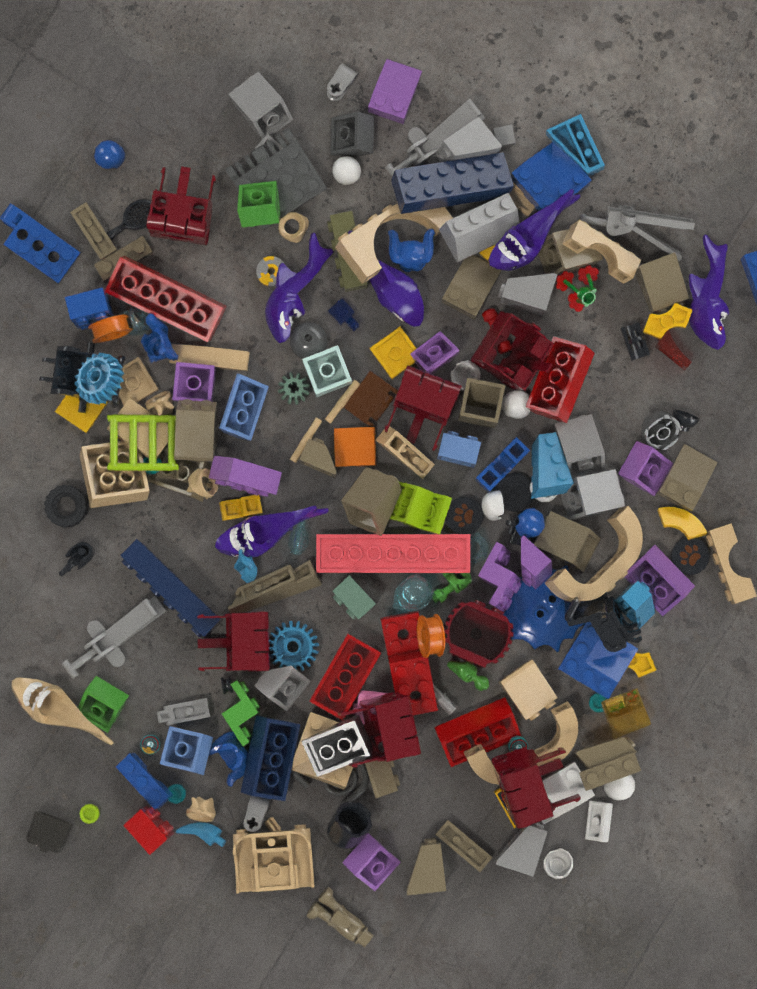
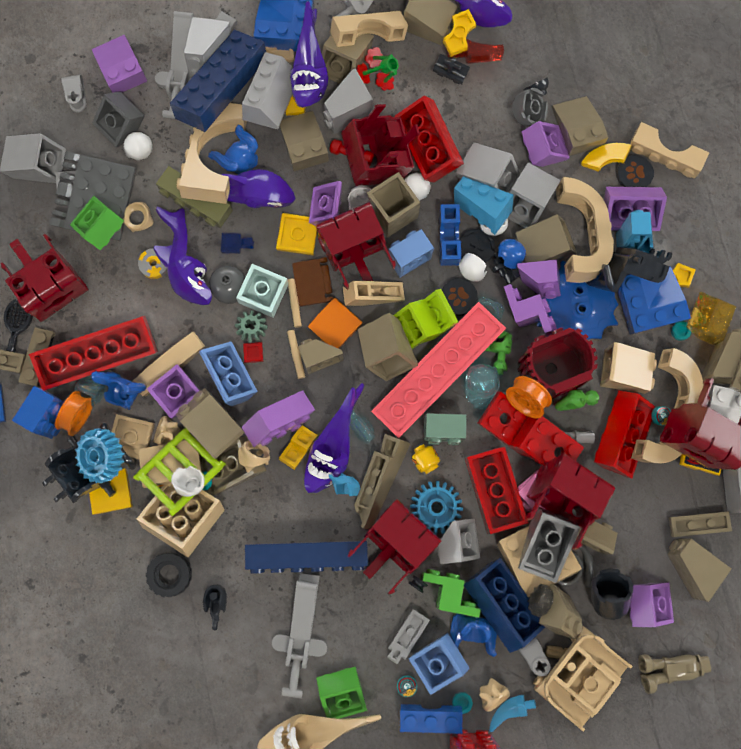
camera: 45 degrees left, 5 degrees down
(141, 457) = (188, 481): none -> white hair
(277, 408) = (253, 352): none -> red tile
(296, 778) = (543, 594): none -> clear smoke gear
(302, 802) = (562, 616): none -> dark tan slope
(320, 606) = (425, 459): none -> yellow head

